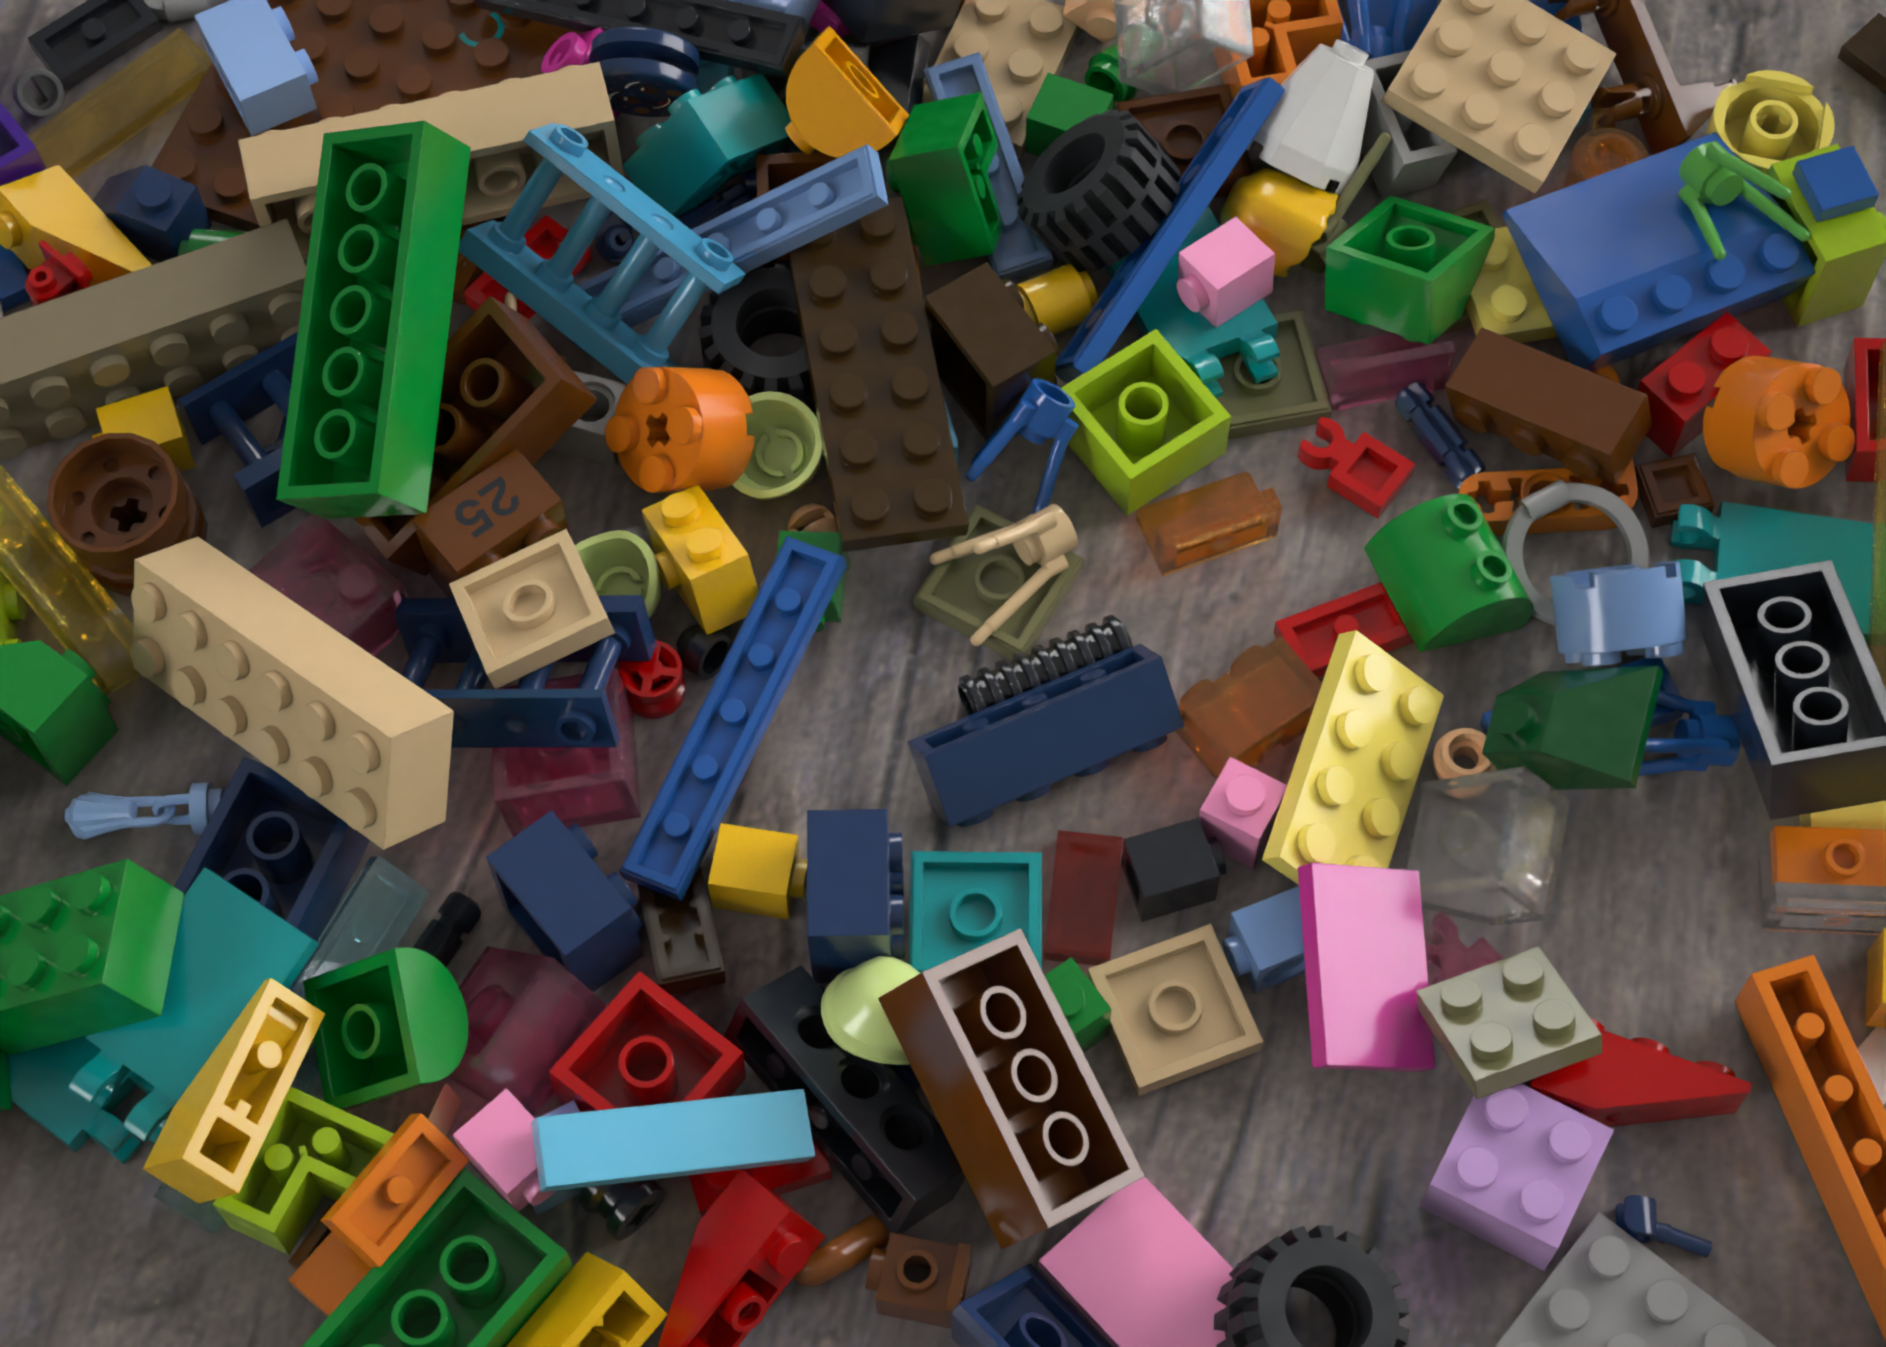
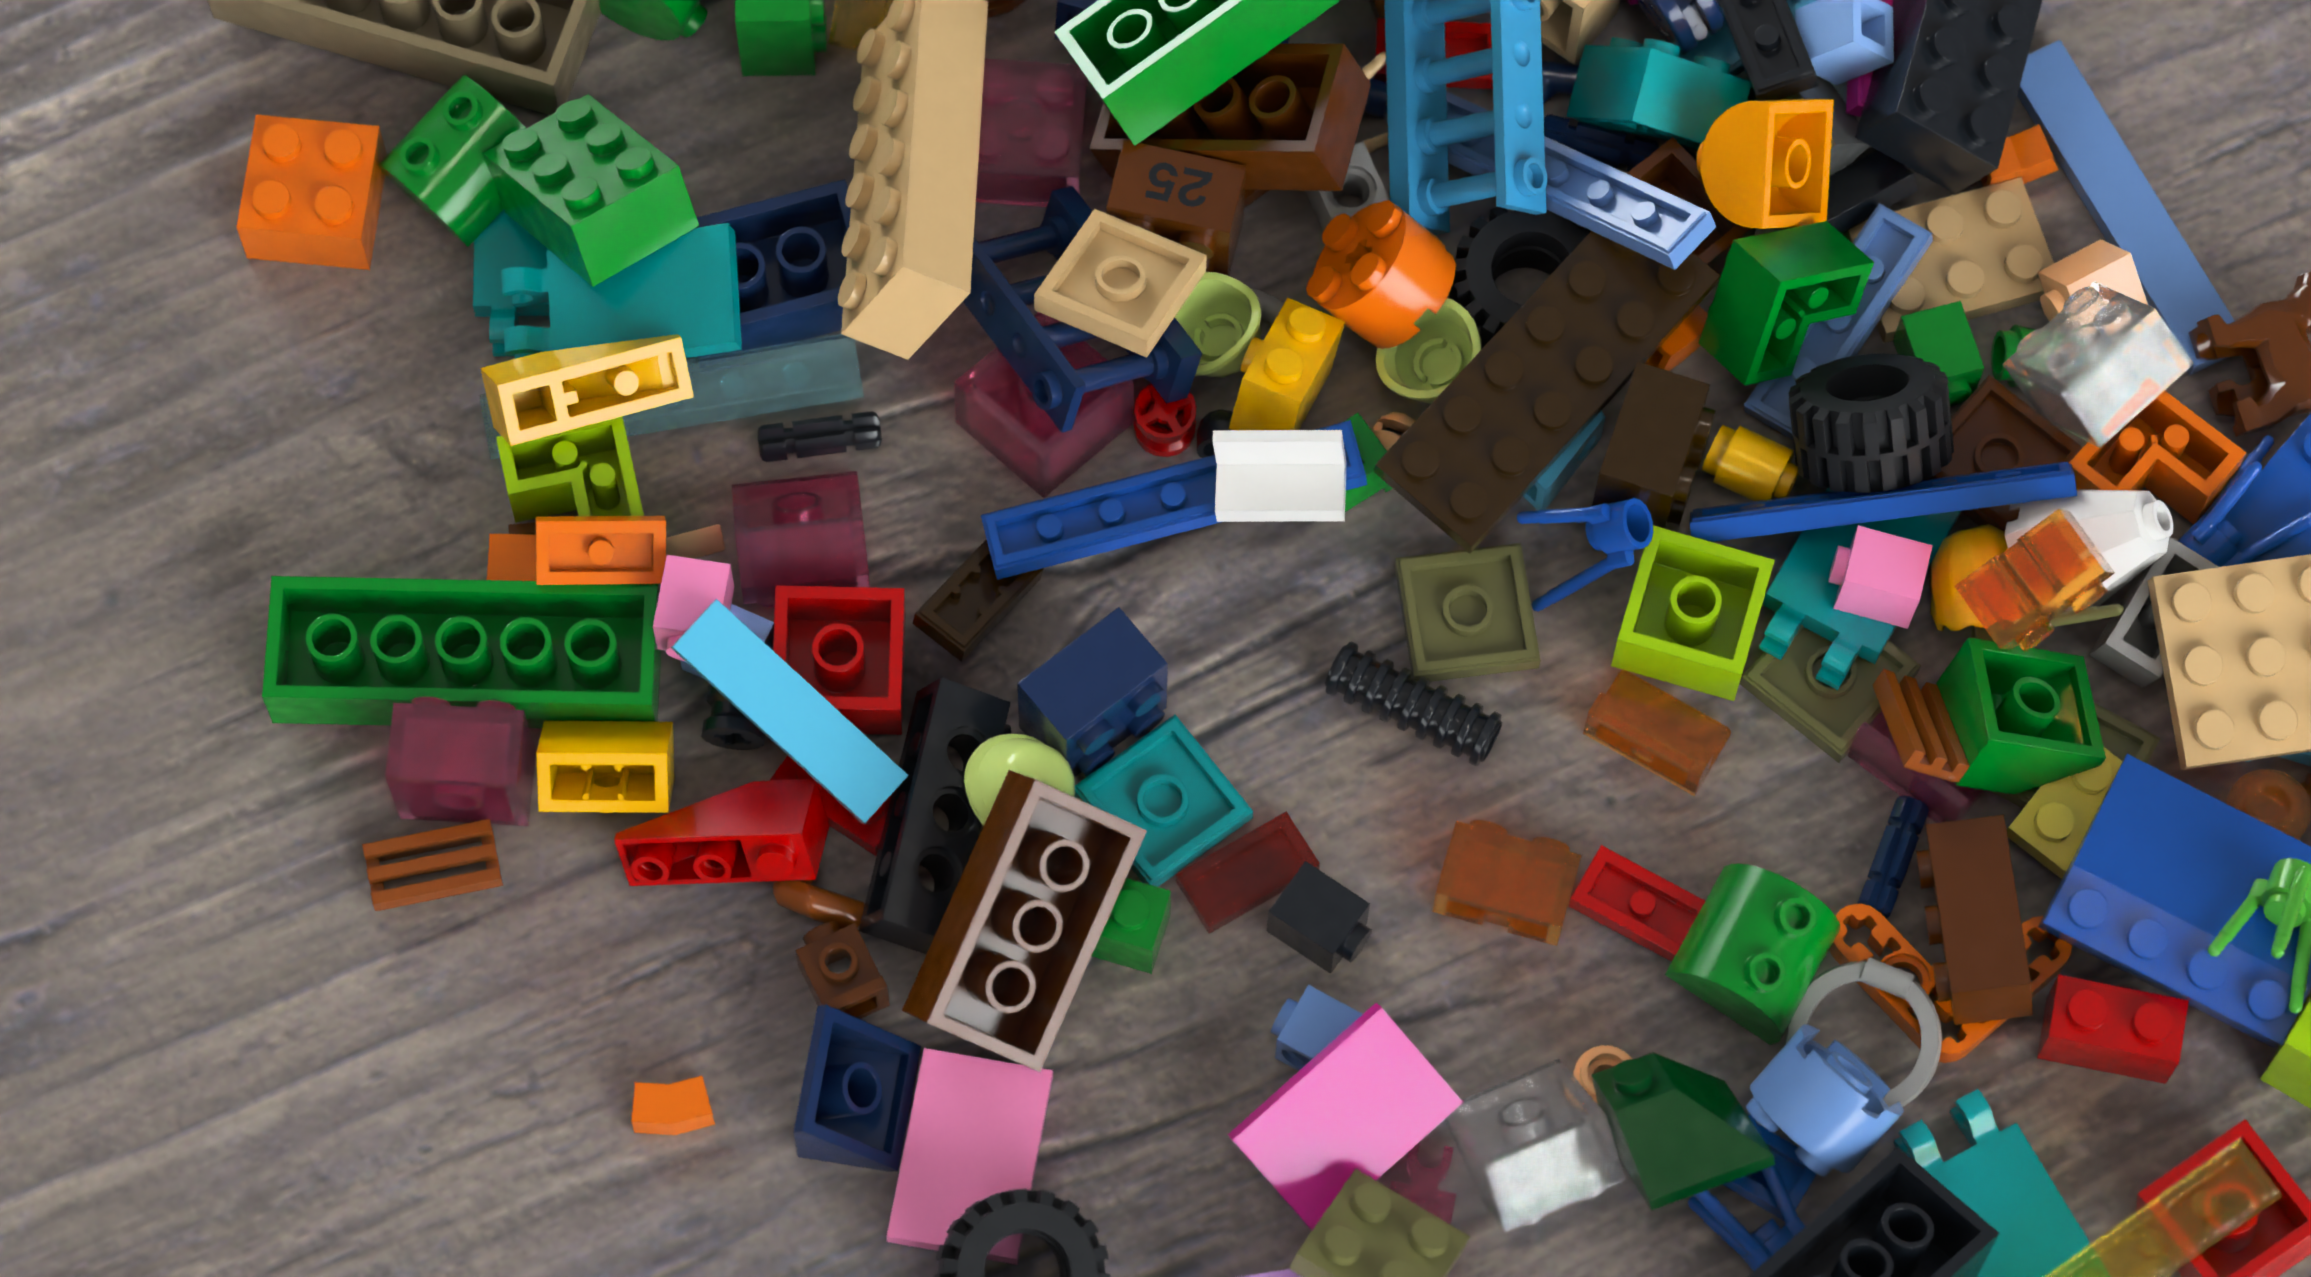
camera: 50 degrees right, 5 degrees up
(101, 813) = (737, 119): light blue piece -> none
(386, 1026) = (721, 449): green brick -> none
(567, 901) = (921, 499): dark blue piece -> none
(757, 871) = (1061, 605): yellow brick -> none
(795, 614) = (1279, 475): none -> white panel
(1036, 538) = (1520, 607): tan plant -> none
(1046, 736) = (1351, 742): dark blue brick -> none
(1175, 1010) = (1205, 1004): tan plate -> none
(1242, 811) = (1409, 936): bright pink brick -> none
(1332, 161) = (2036, 581): none -> clear orange brick
(1355, 762) = (1517, 992): light yellow plate -> none
(1362, 471) = (1804, 820): red plate -> none
(1363, 334) = (1921, 727): none -> dark orange tile
(1668, 484) = (2003, 1077): reddish brown tile -> none
(1779, 421) = (2114, 1112): orange brick -> none

